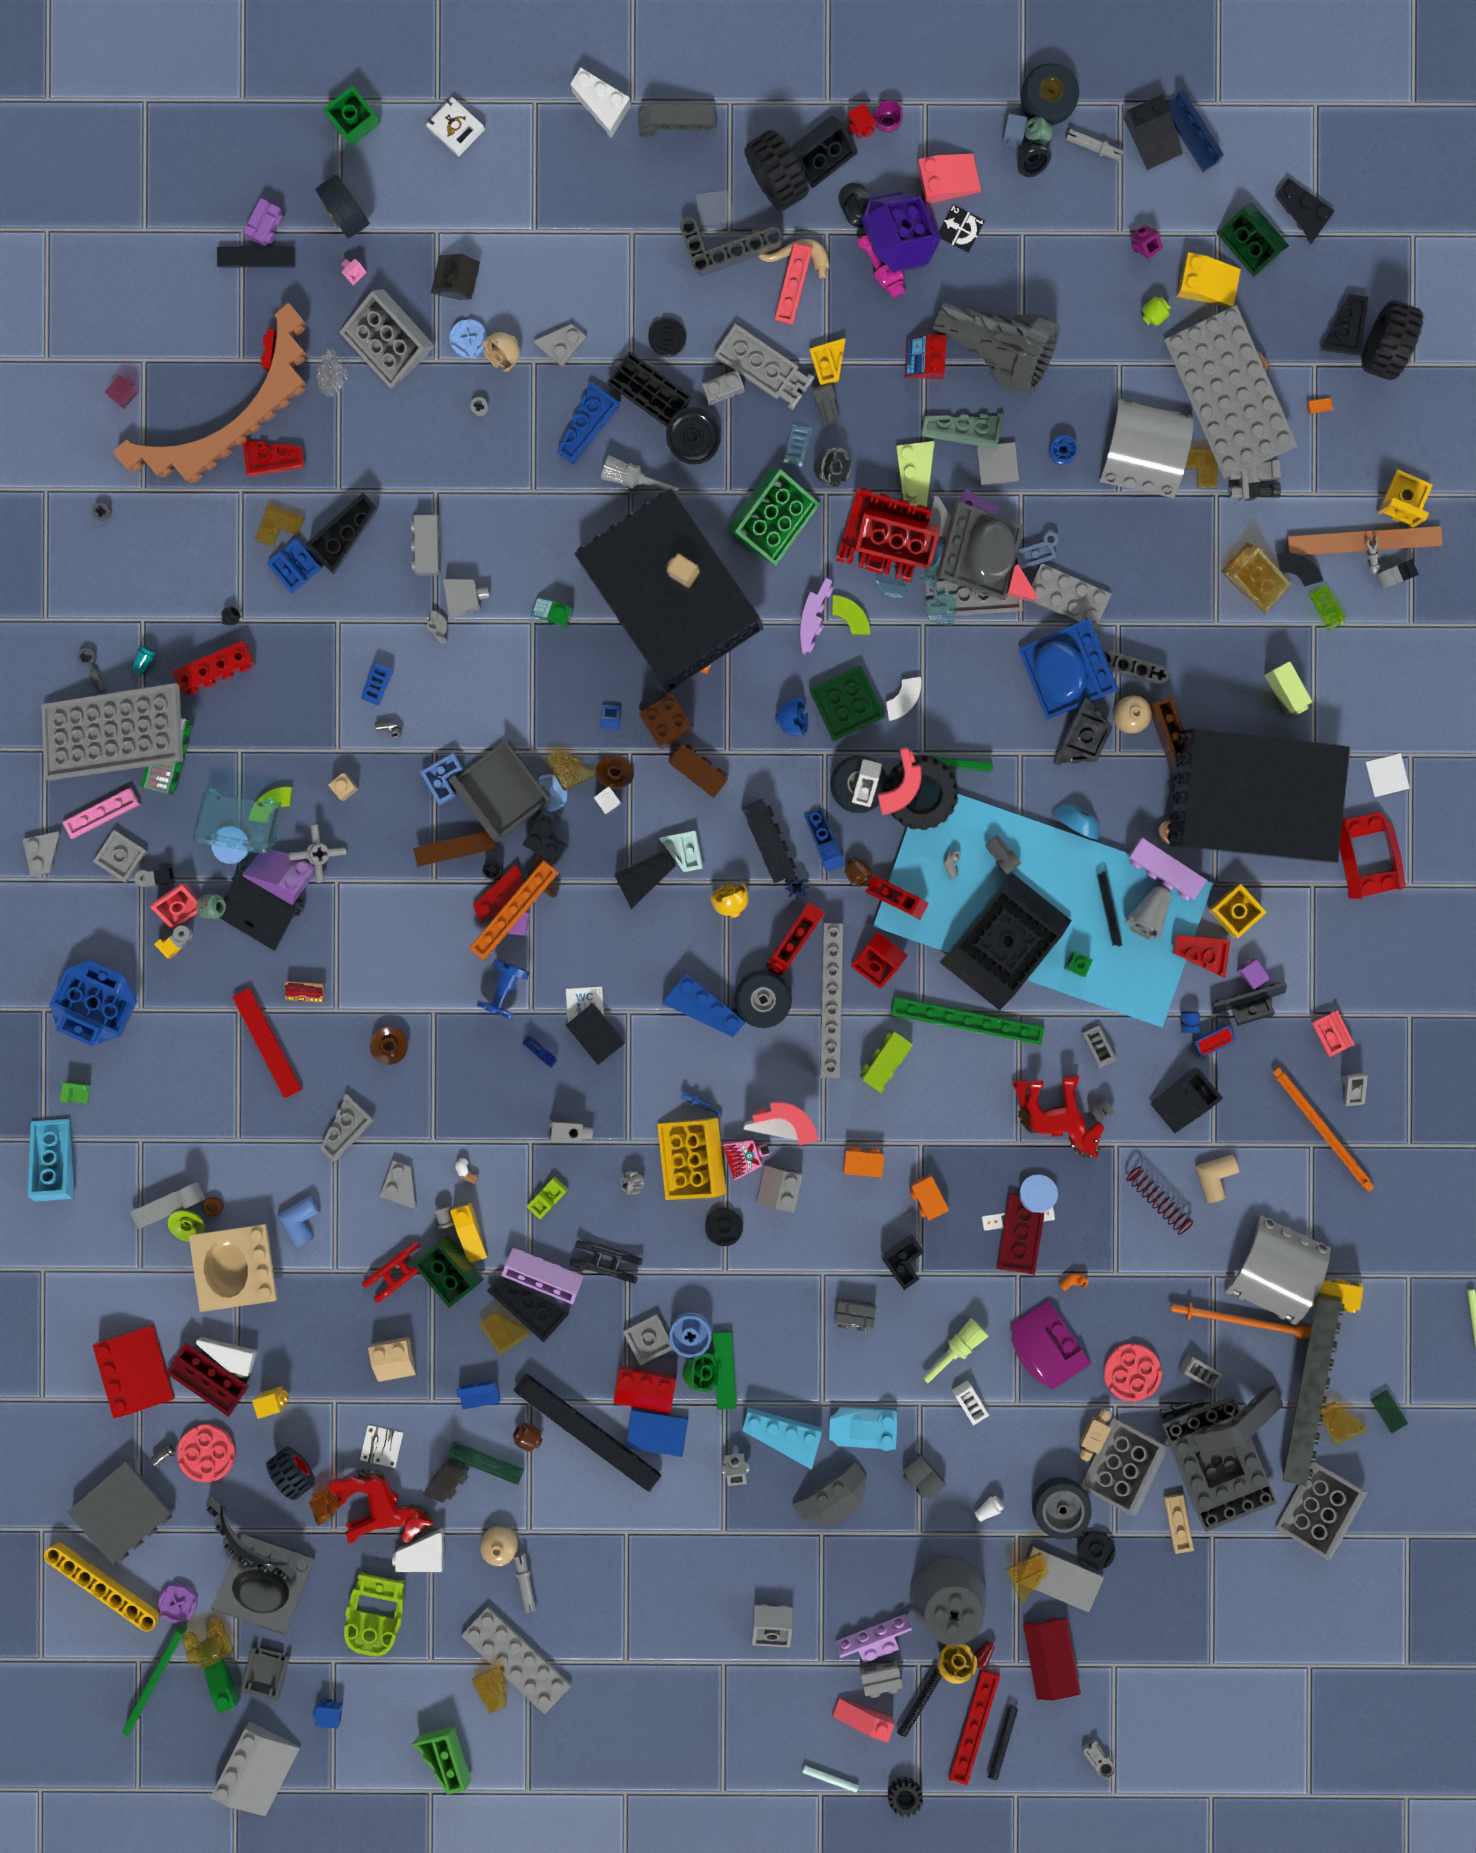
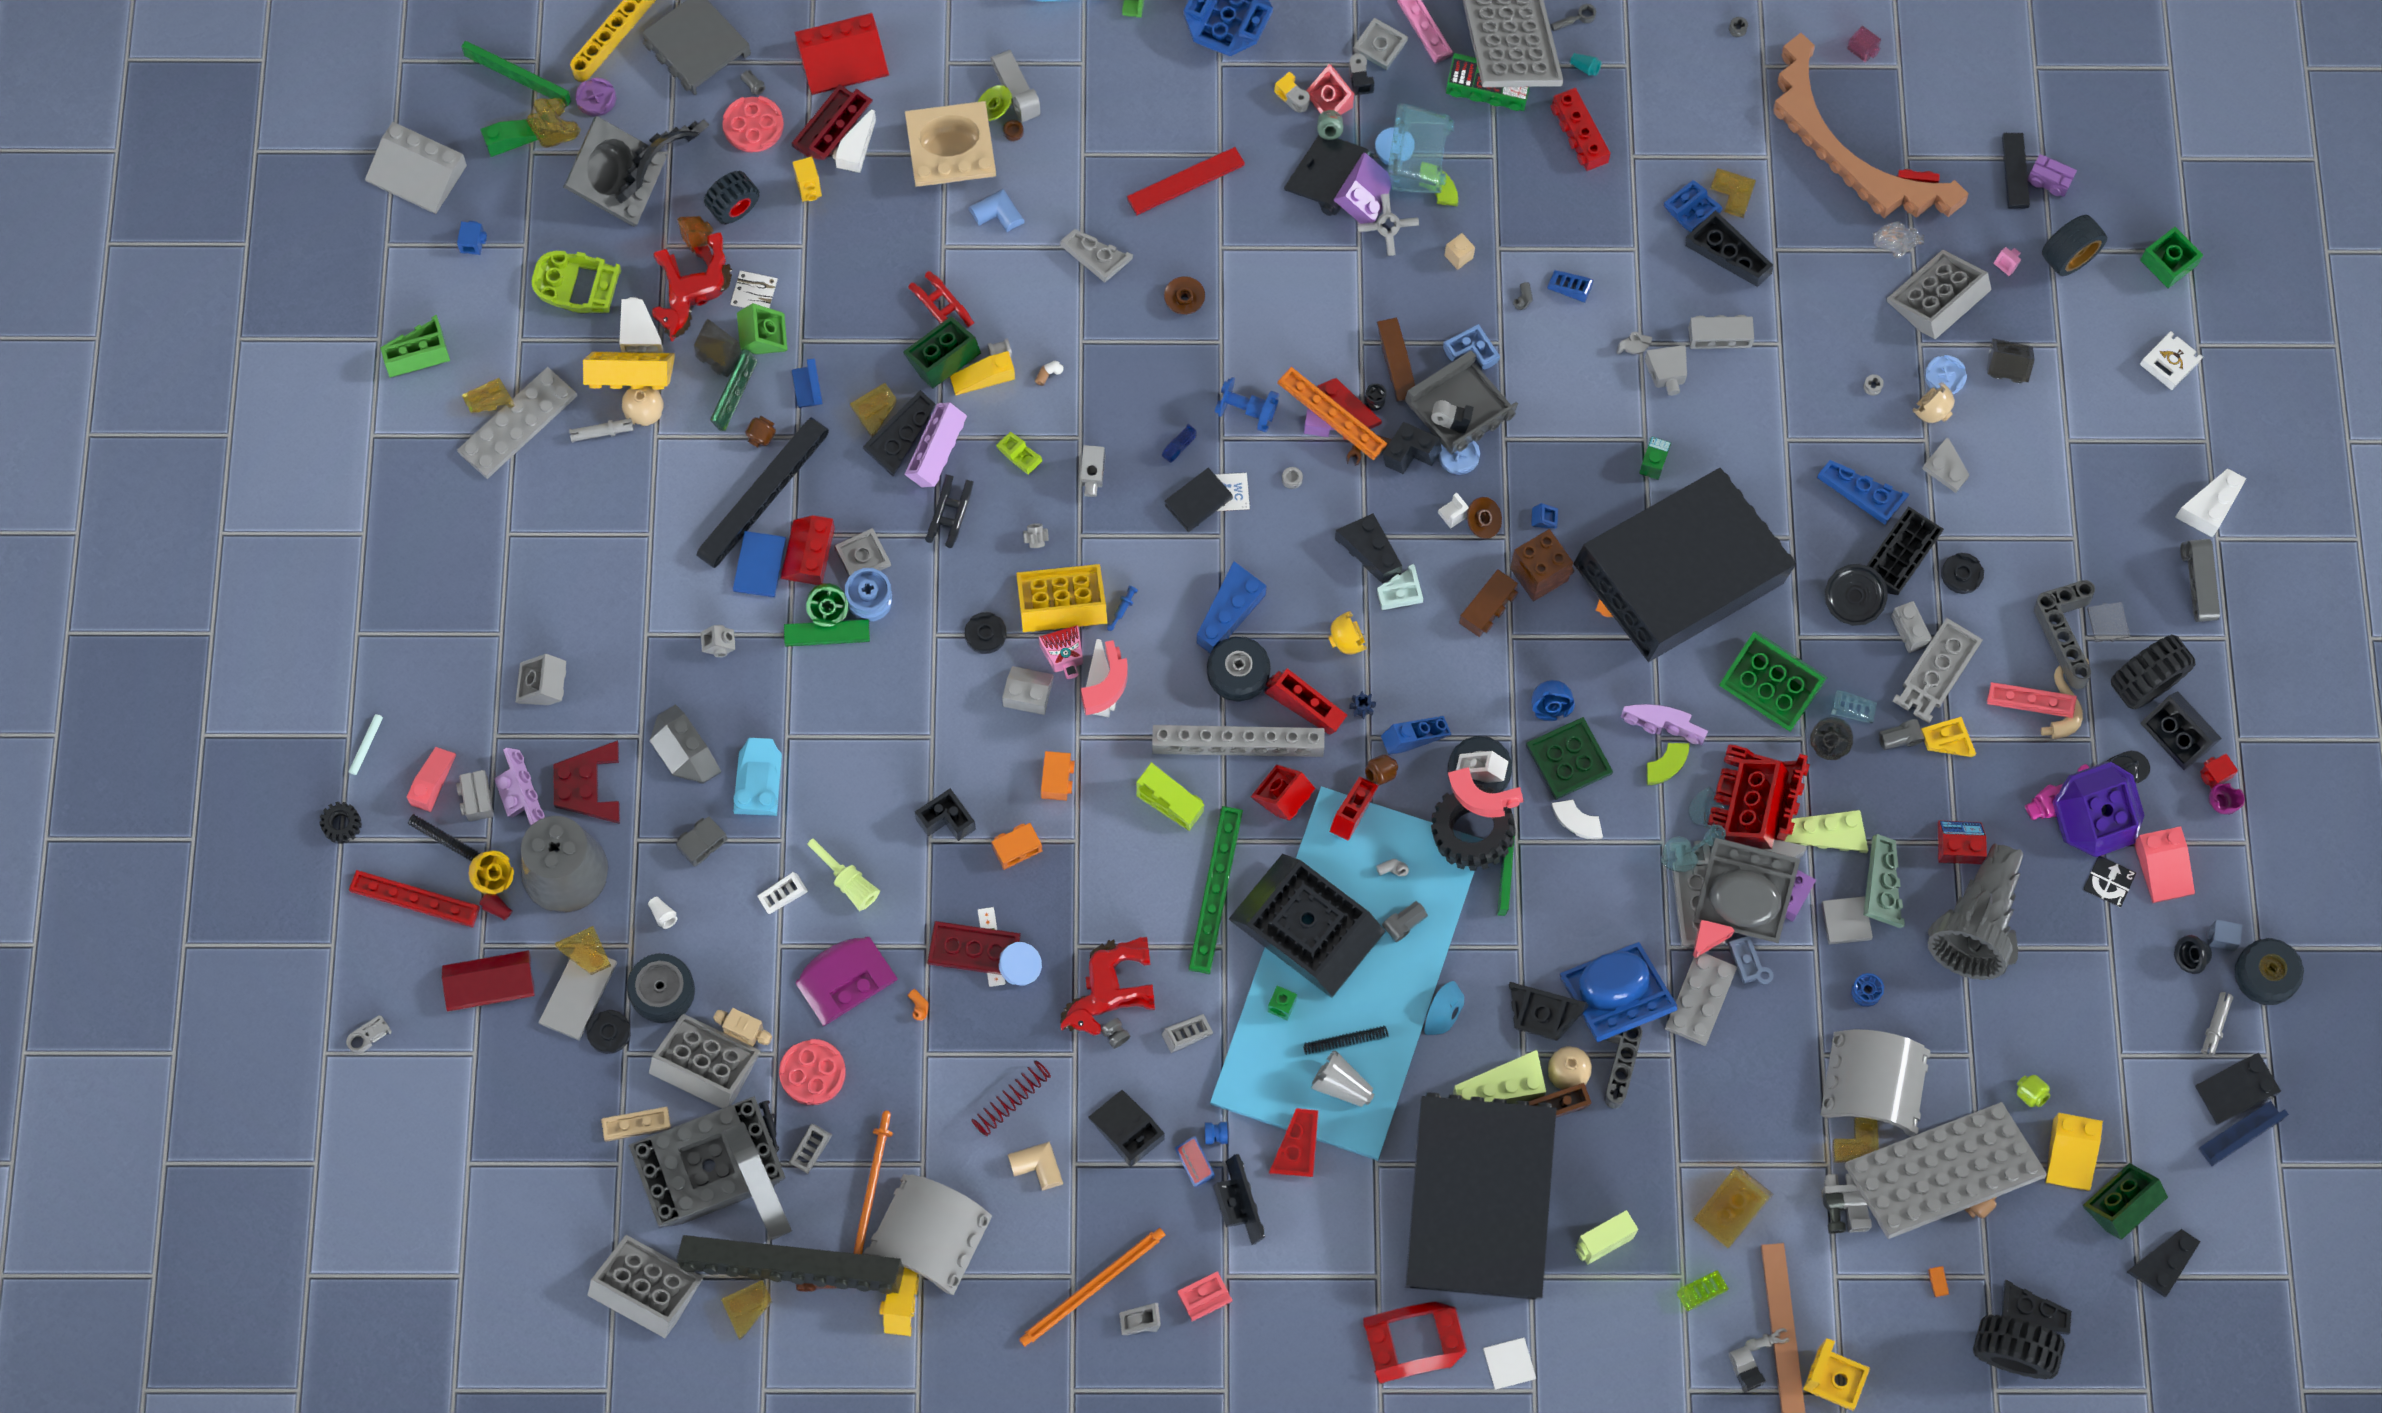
camera: 85 degrees right, 20 degrees down
(230, 616) = (1636, 145): black plate -> none
(265, 1668) = (523, 179): dark grey container -> none
(271, 458) = (1804, 183): red wing -> none
(304, 991) = (1241, 216): slope -> none
(392, 1359) = (847, 299): tan slope -> none
(399, 1185) = (1034, 308): light grey wing -> none
(424, 1438) = (761, 330): none -> bright green slope
(467, 1563) = (628, 369): none -> yellow slope
(516, 799) = (1452, 416): none -> leg
(568, 770) = (1485, 471): clear yellow wing -> none
(571, 947) = (1292, 477): none -> light grey tile
(630, 475) = (1809, 532): light grey piece -> none
(682, 570) = (1706, 566): tan brick -> none
(768, 840) = (1414, 673): black wedge -> none
(785, 1435) = (752, 695): medium azure wedge -> none
(855, 1314) = (886, 767): dark grey brick -> none
(868, 1588) = (578, 783): none -> dark red wing
(1001, 1743) = (386, 925): black piece -> none
(1038, 130) = (2226, 959): sand green head -> none
(1146, 241) = (2112, 1077): magenta brick -> none
(1150, 773) = (1512, 1081): none -> yellowish green wedge
(1167, 869) = (1393, 1099): lavender brick -> none
(1237, 911) = (1346, 1182): yellow brick -> none
(1253, 973) = (1274, 1203): medium lavender brick -> none
(1300, 566) = (1749, 1256): black tile -> none
(1389, 1411) = (757, 1366): clear green tile -> none

